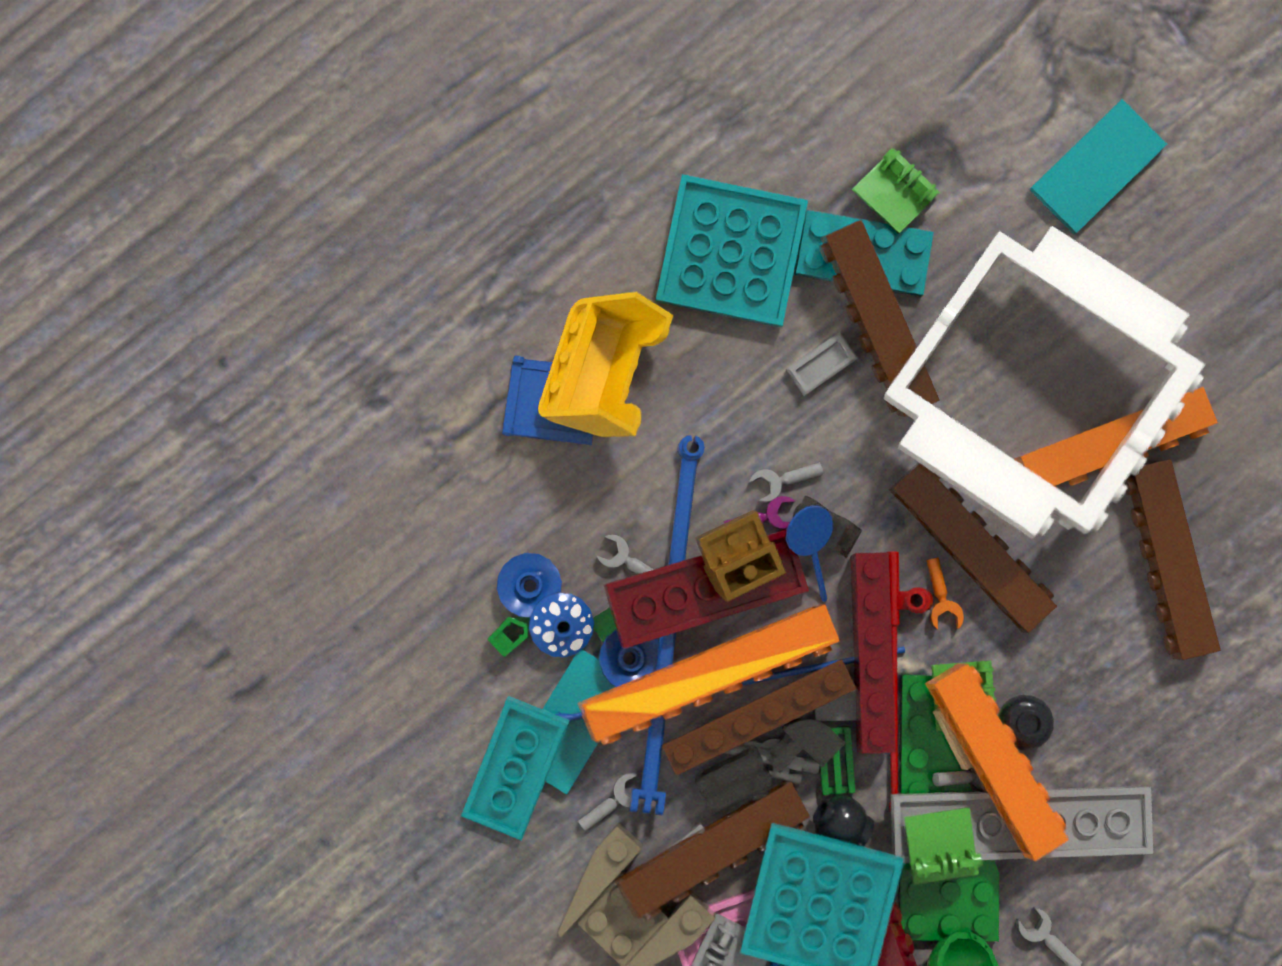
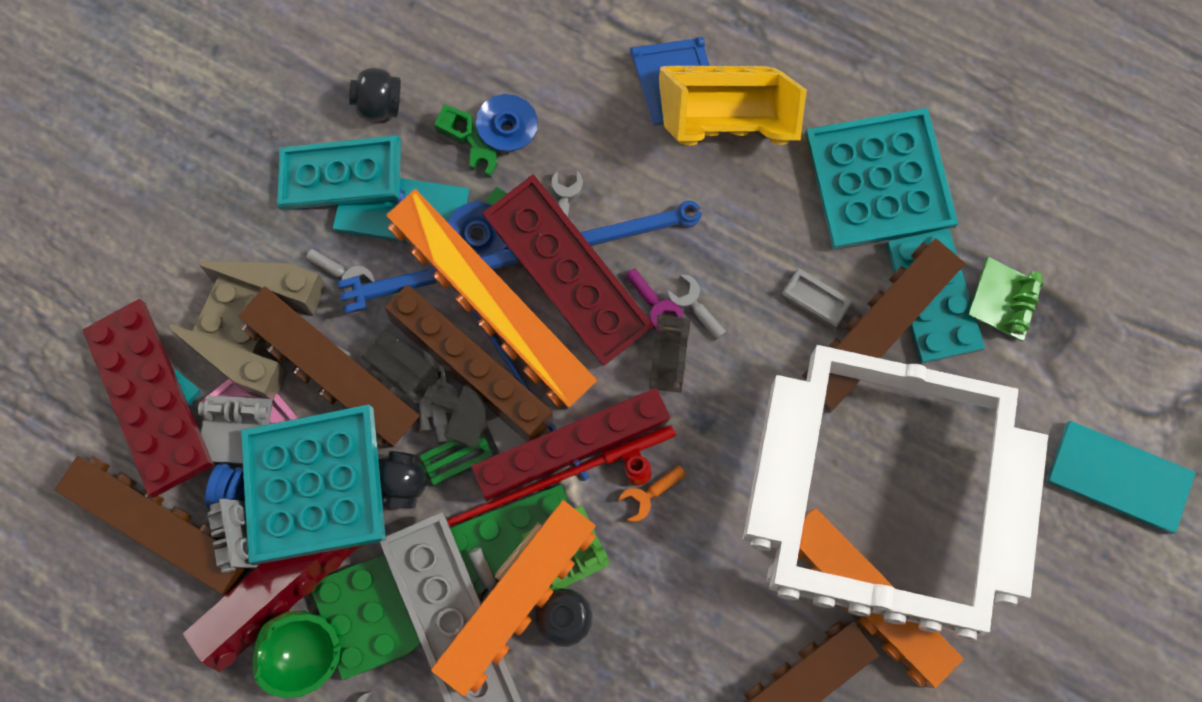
camera: 70 degrees right, 10 degrees down
(449, 702) = (375, 94): none -> black piece
(550, 613) = (493, 173): blue dish -> none
(739, 556) = (609, 279): pearl gold brick -> none
(808, 534) = (657, 335): blue piece -> none
(941, 846) = (411, 576): bright green hinge -> none
(973, 548) = (708, 503): reddish brown brick -> none

